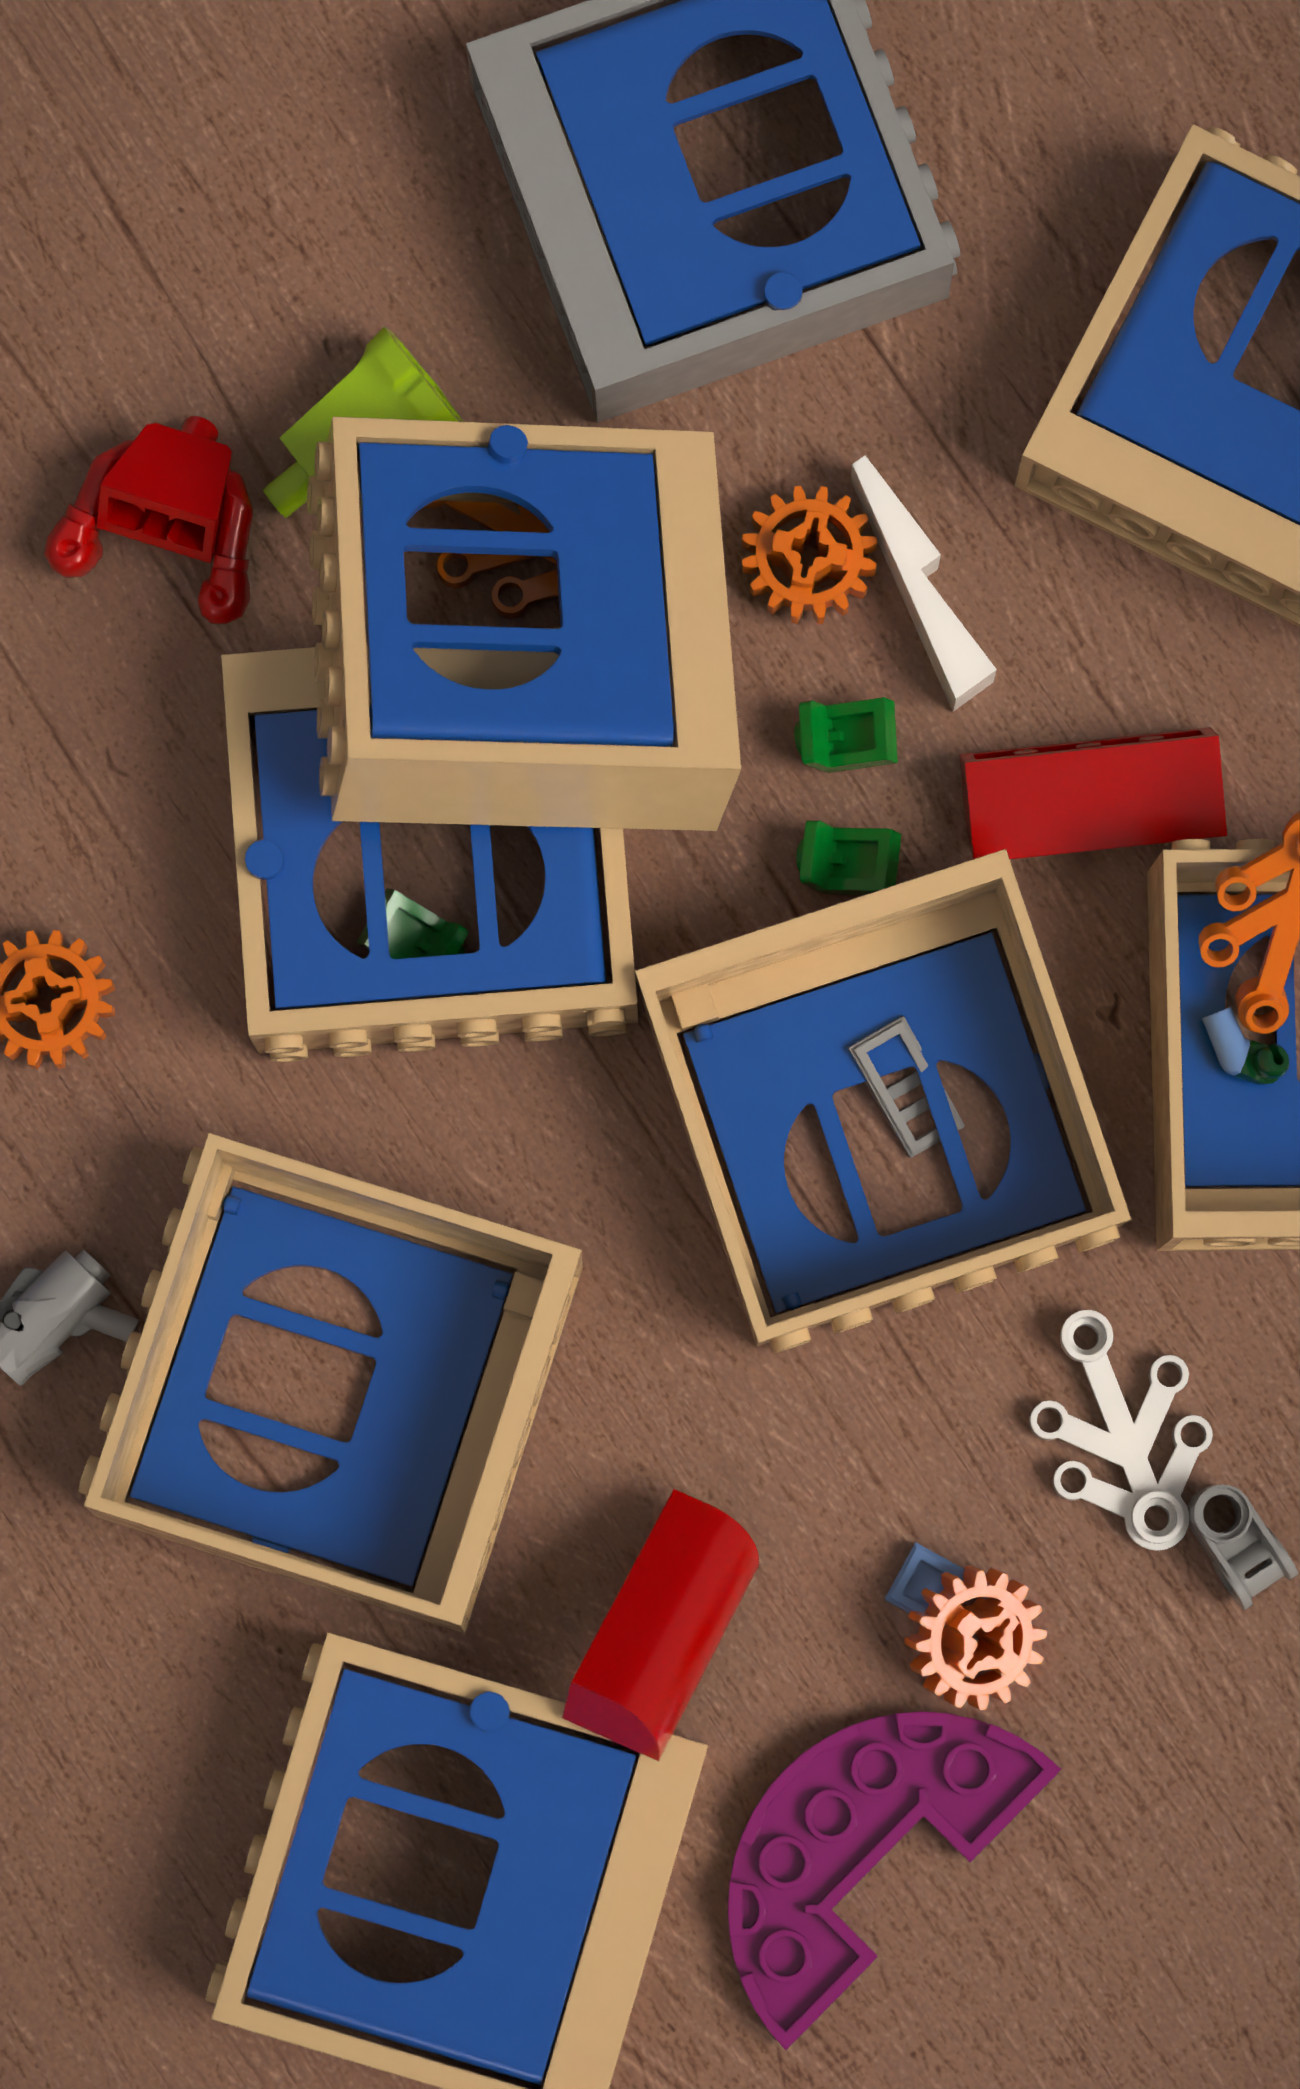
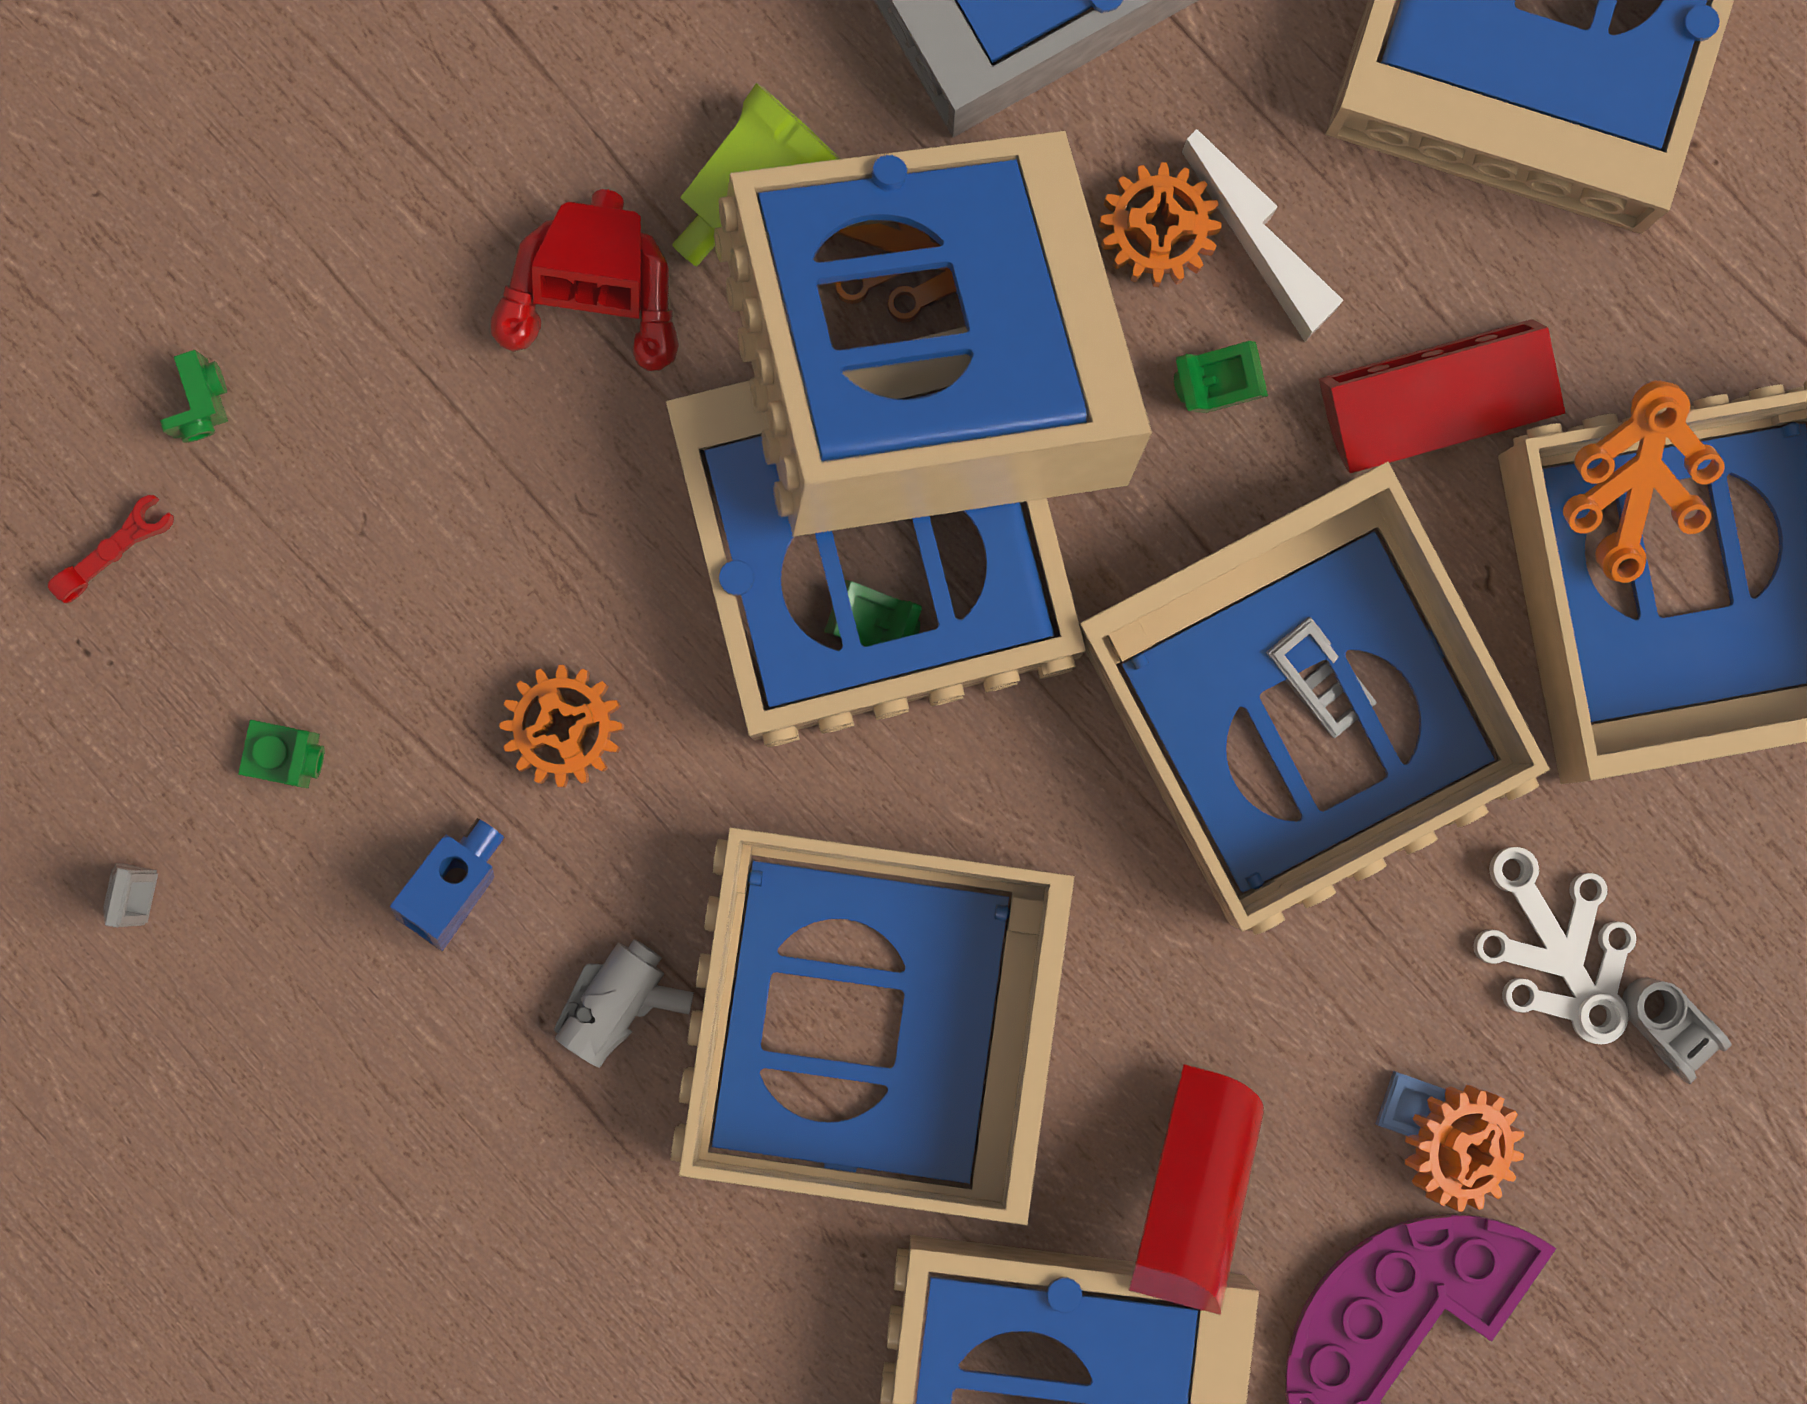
camera: 15 degrees left, 5 degrees up
(848, 858) = (1240, 488): green bracket -> none
(1243, 1056) = (1611, 604): arm -> none

